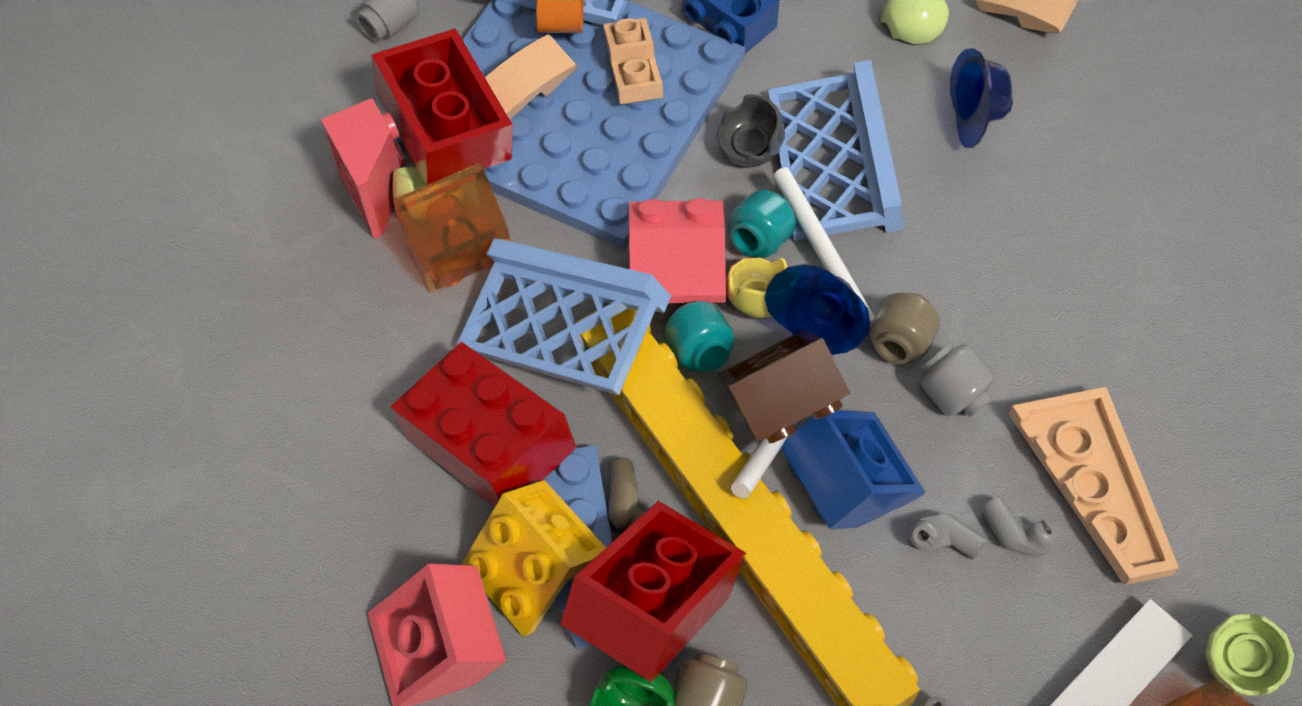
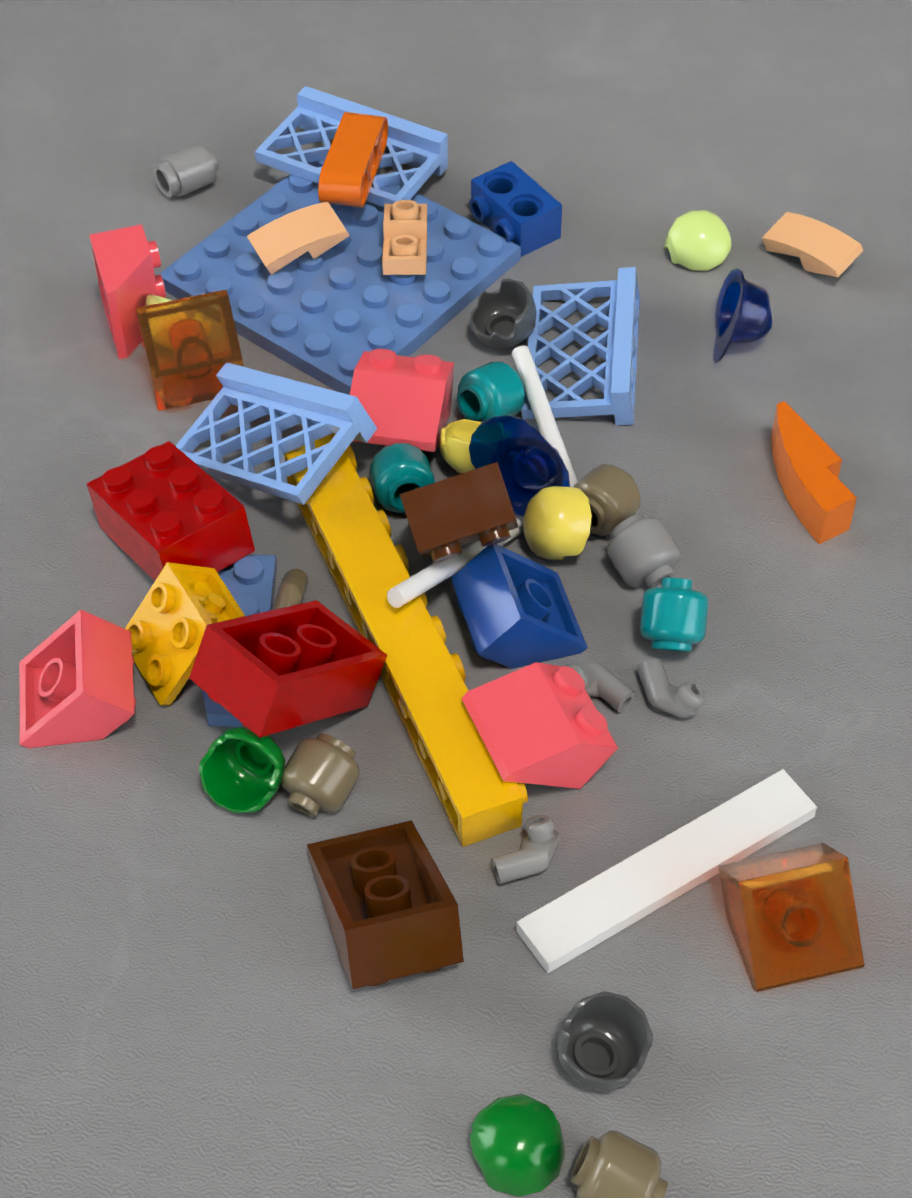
camera: 10 degrees right, 10 degrees down
(442, 106) = (208, 242): red brick -> none
(870, 362) = (557, 522): none -> light yellow hair
(915, 604) = (541, 726): none -> coral slope
(1007, 449) = (674, 615): none -> teal head
(1090, 263) = (810, 475): none -> orange slope
(1098, 475) = (763, 658): light nougat wing -> none
(1249, 654) = (866, 827): yellowish green hair -> none

